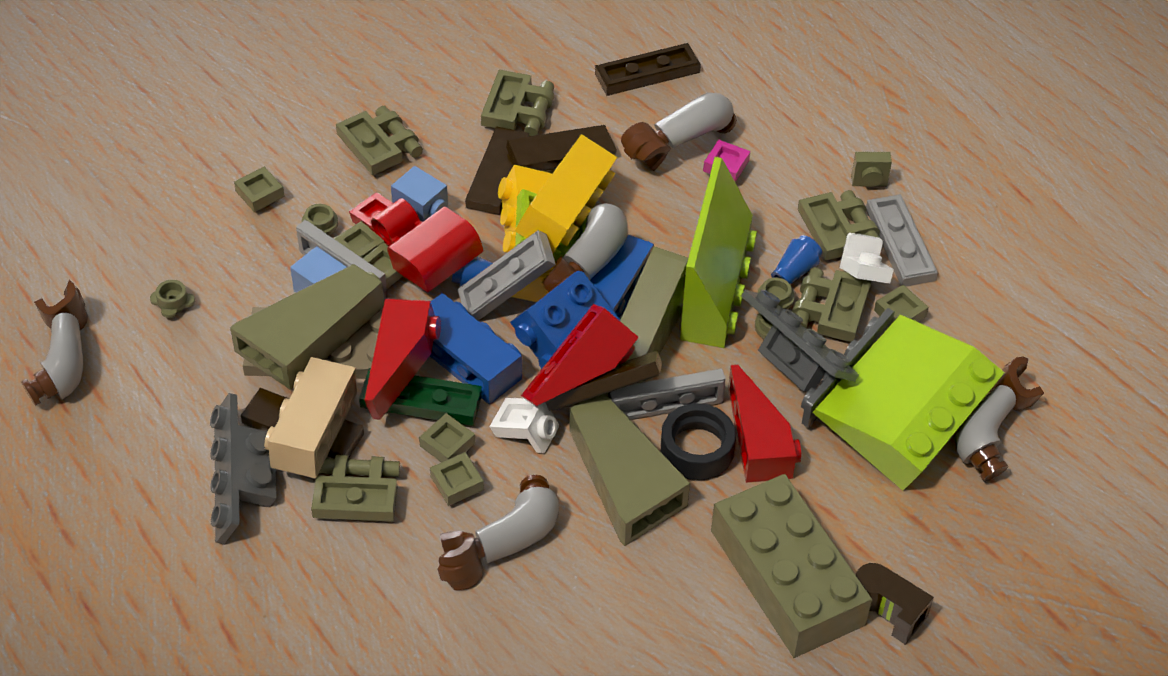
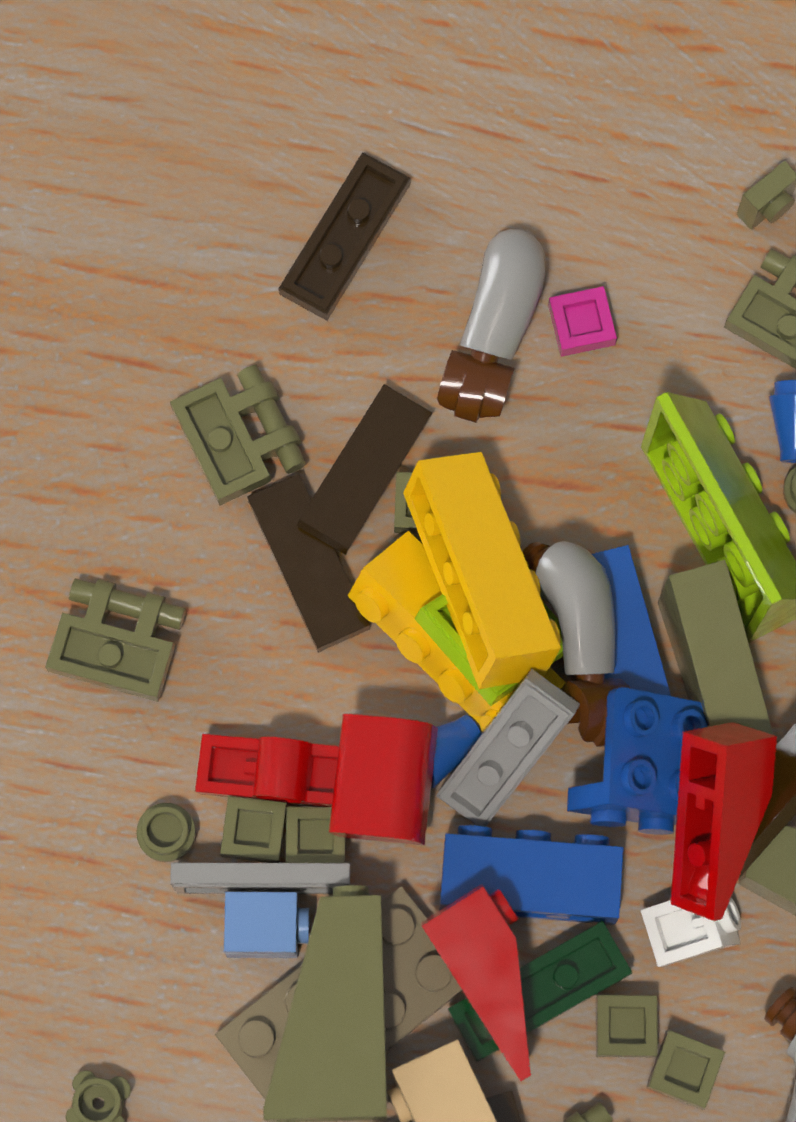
camera: 40 degrees left, 25 degrees up
(259, 189) = (42, 848): olive plate -> none
(422, 192) = (265, 695): medium blue brick -> none

